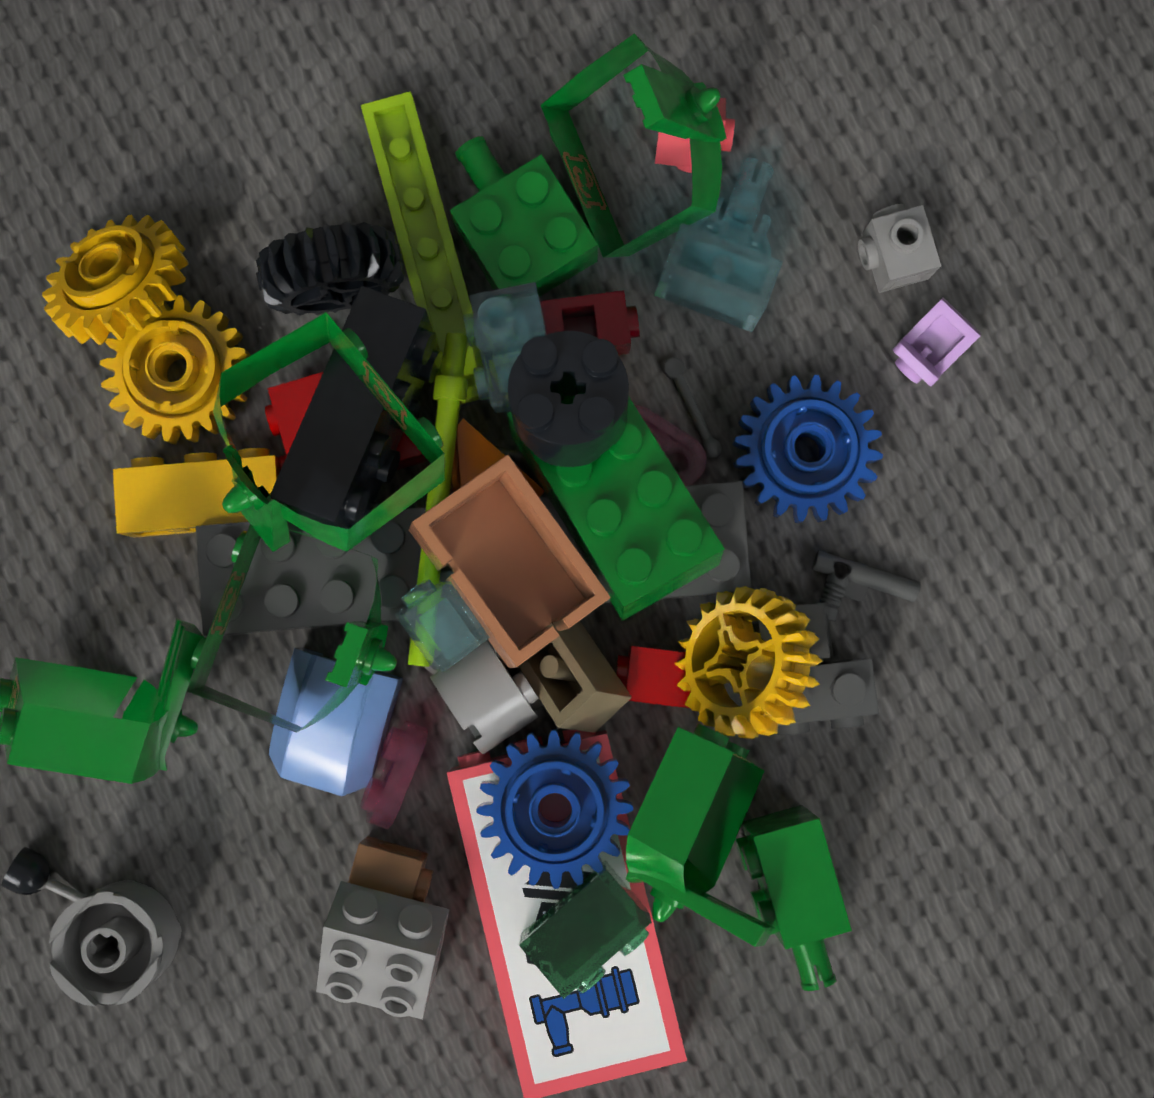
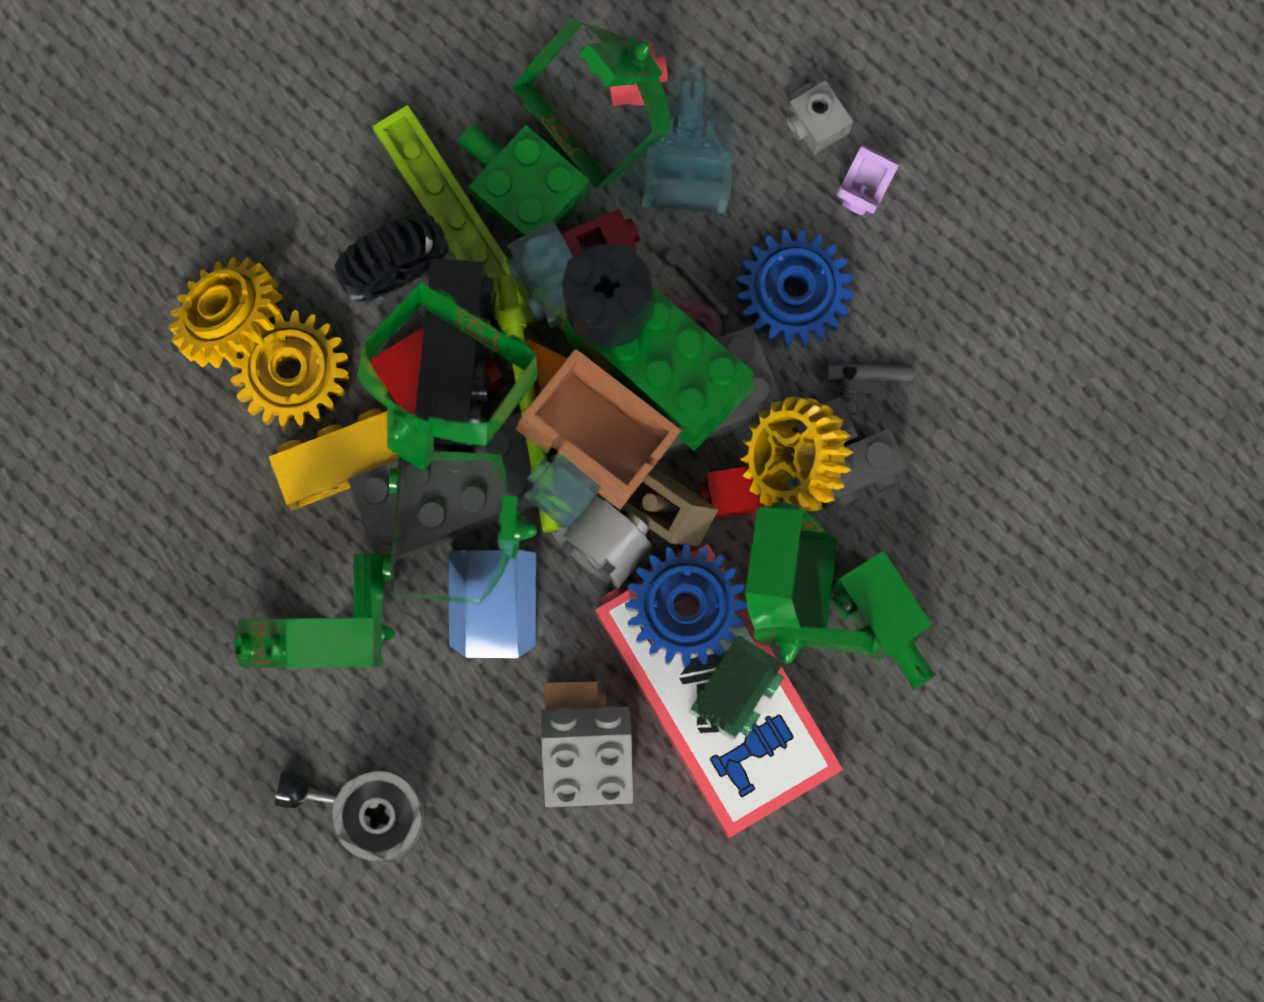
camera: 25 degrees left, 5 degrees down
(385, 795) = (553, 642): clear pink plate -> none

